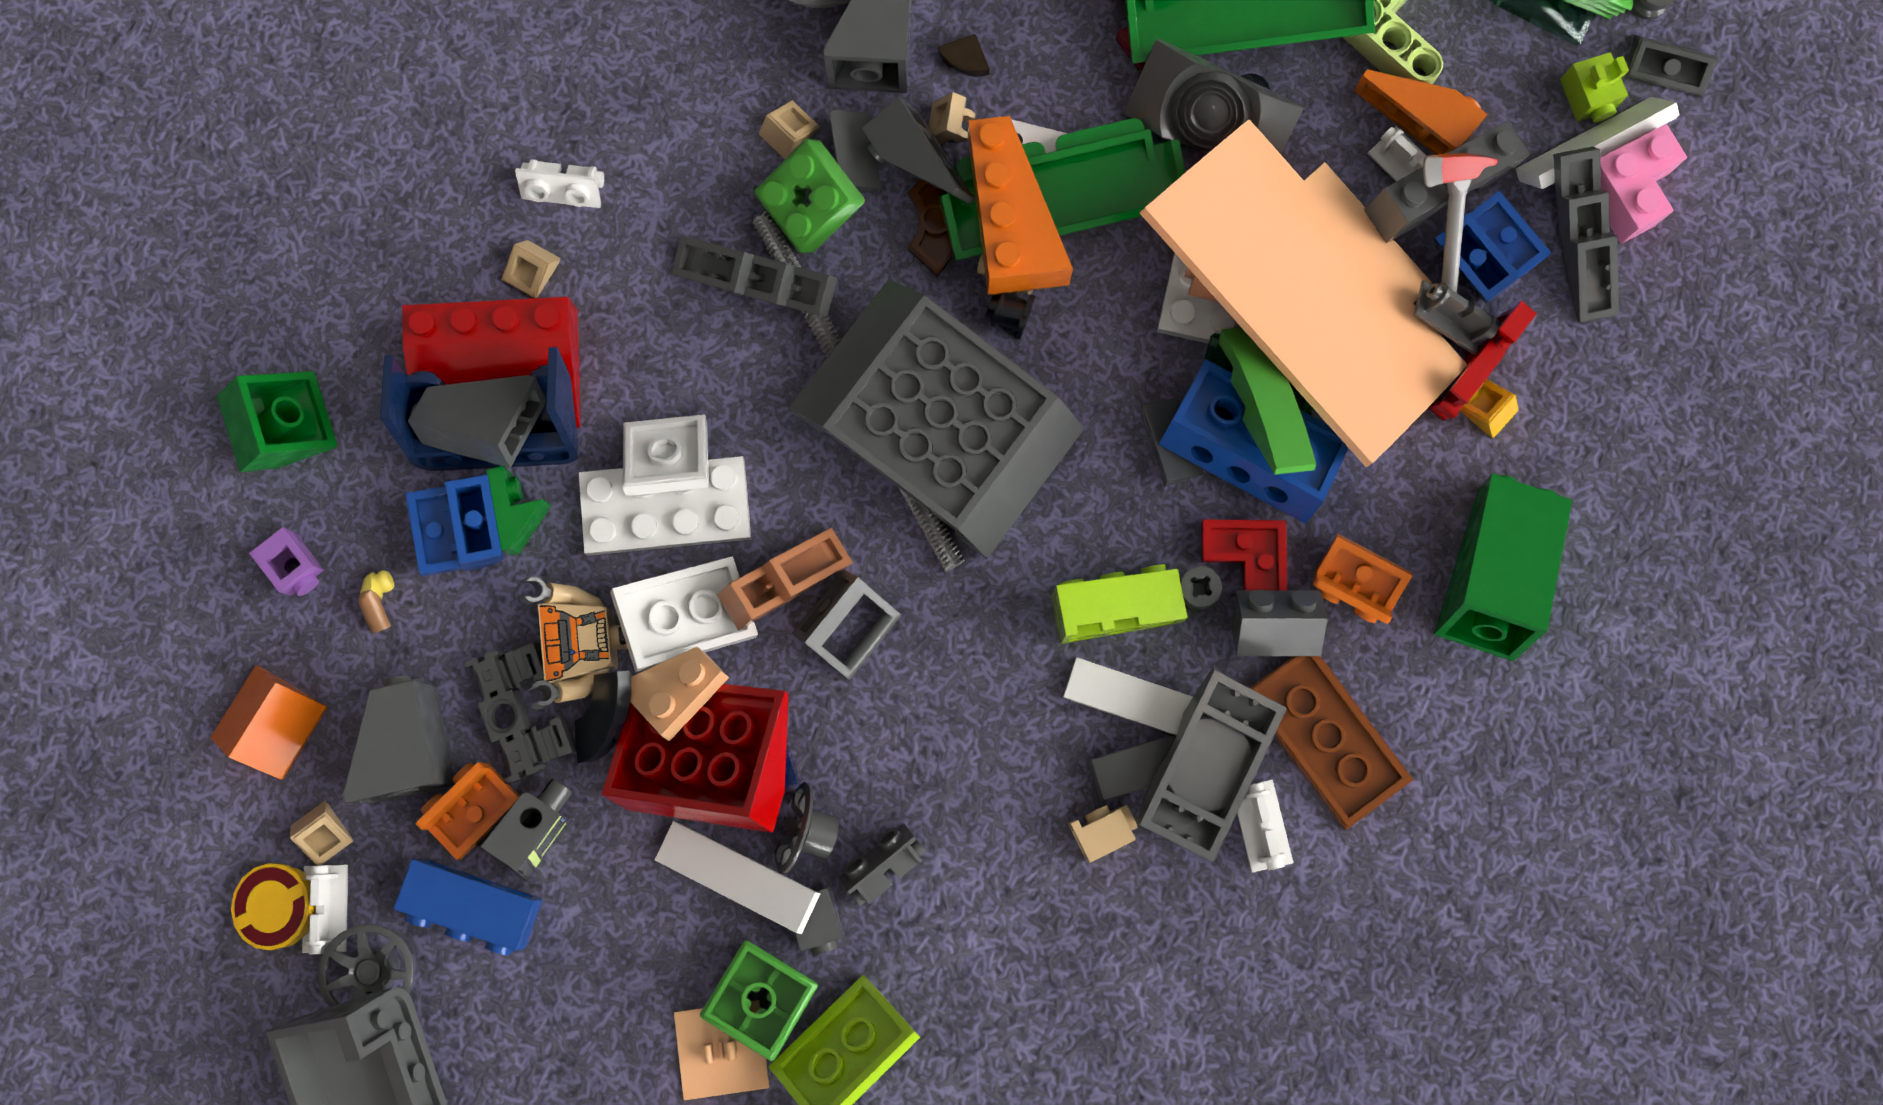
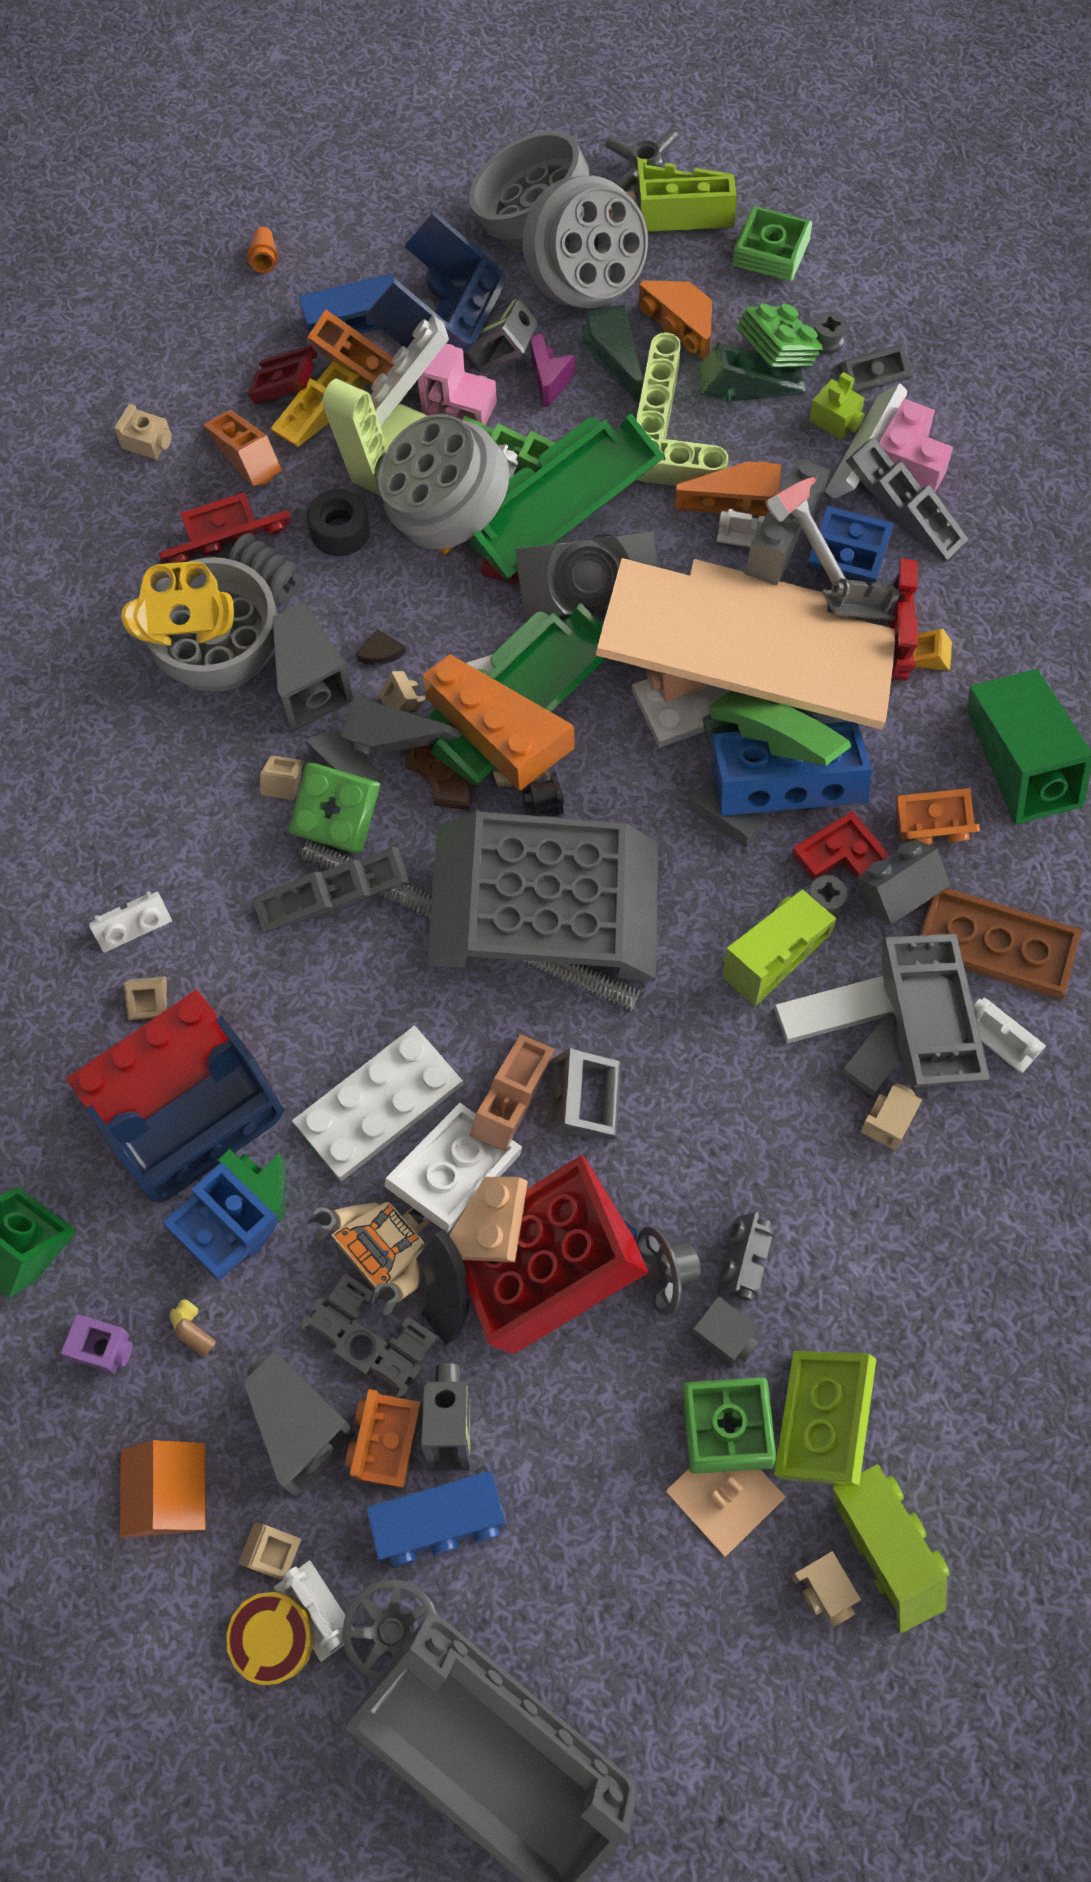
camera: 30 degrees left, 15 degrees down
(479, 417) = (186, 1120): dark grey slope -> none
(665, 455) = (353, 1061): white tile -> none
(737, 877) = (641, 1338): white tile -> none

